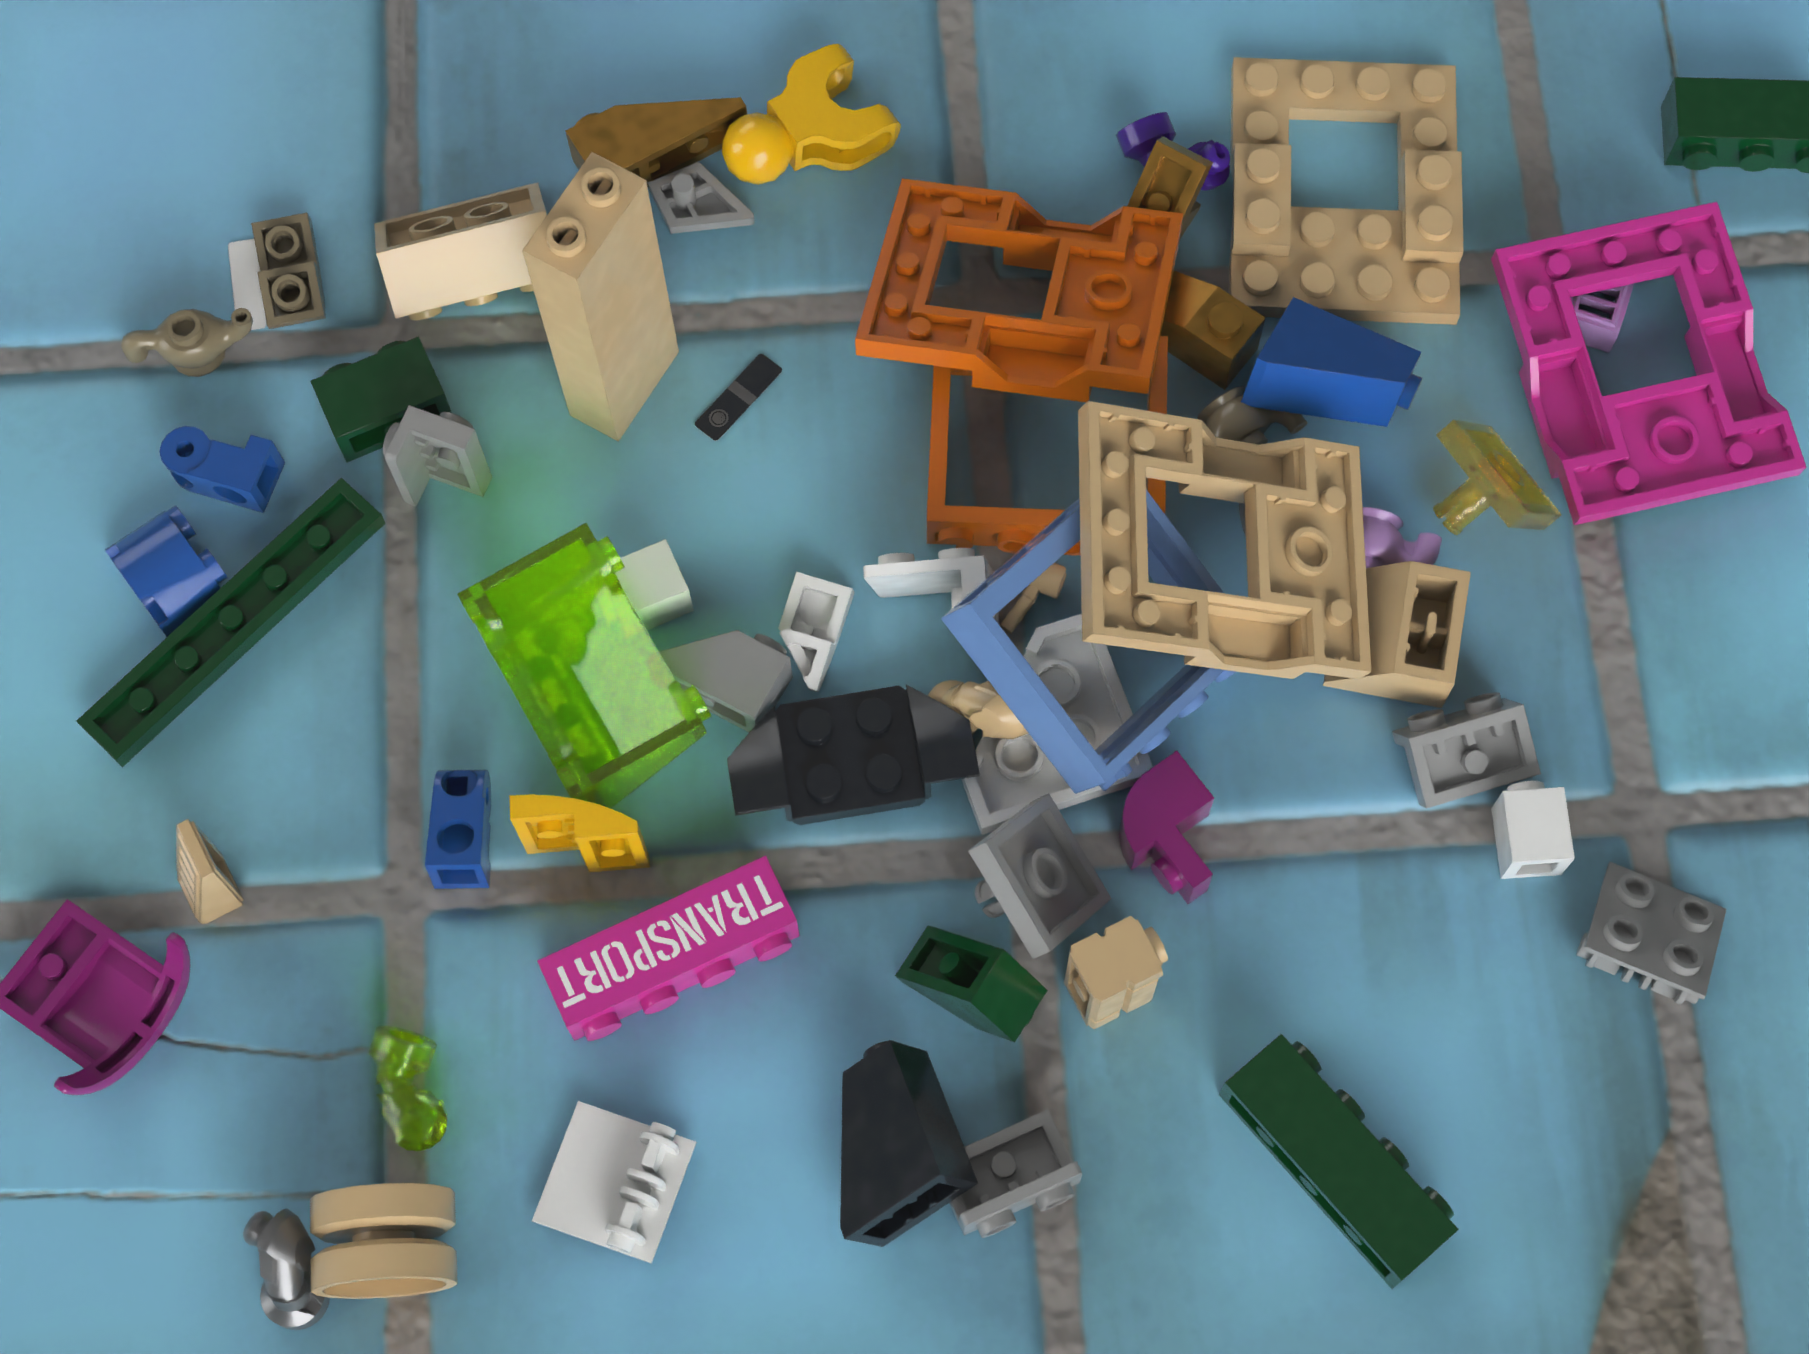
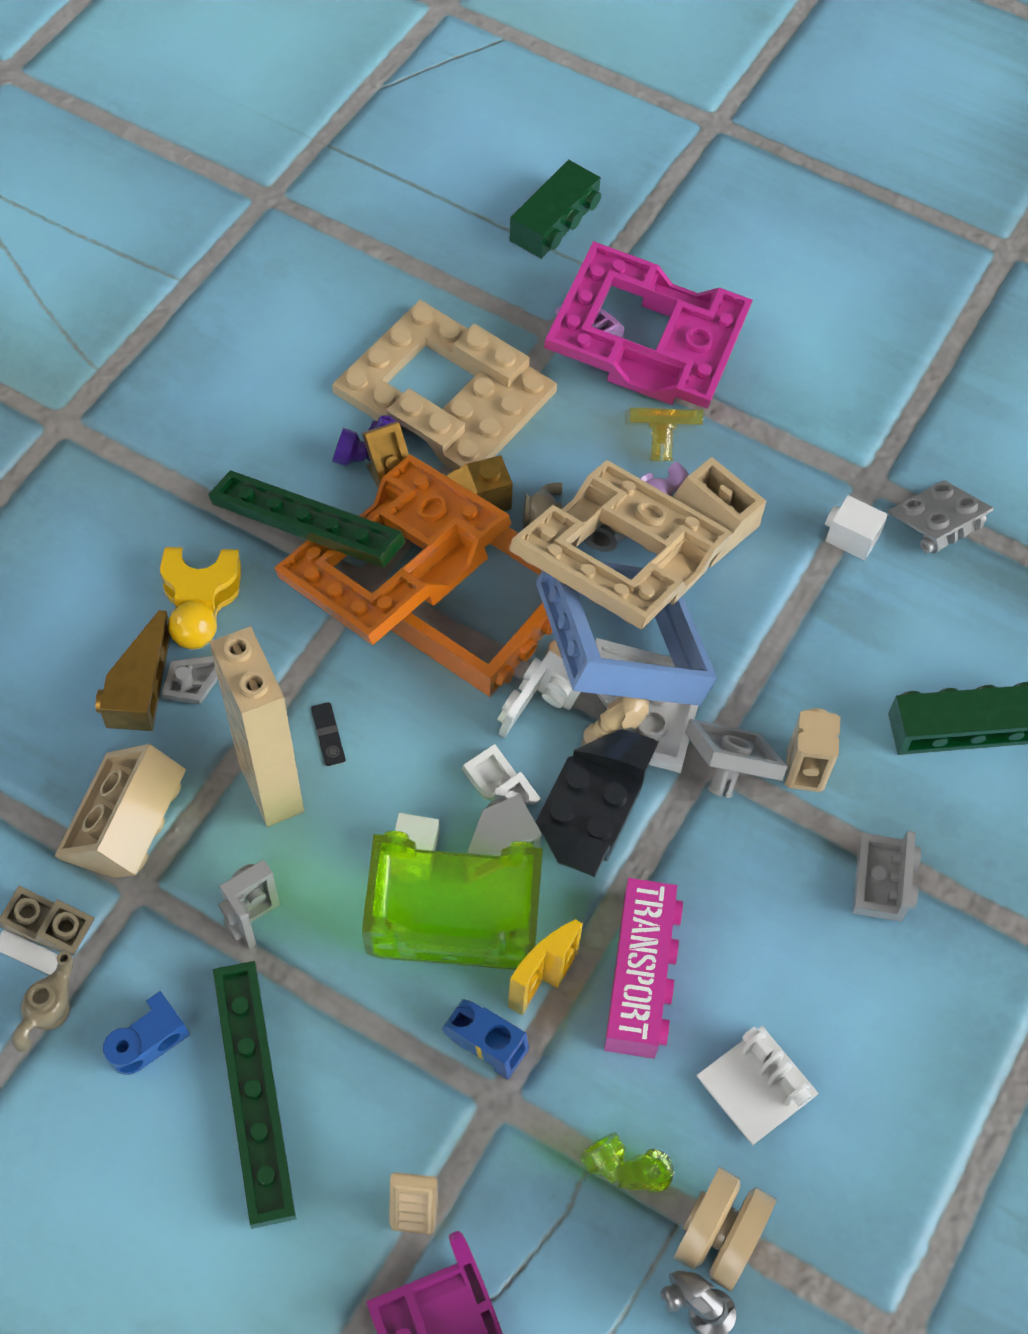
camera: 60 degrees left, 10 degrees down
(166, 569) = (187, 1110): blue cylinder -> none
(374, 393) = (177, 916): dark green brick -> none
(896, 1145) = (838, 915): black slope -> none
(973, 982) = (764, 825): dark green slope -> none
(988, 165) = (307, 518): none -> dark green plate
(1155, 816) = (738, 687): magenta brick -> none
(1332, 369) = (546, 449): blue slope -> none
(1468, 749) = (791, 526): light grey bracket -> none

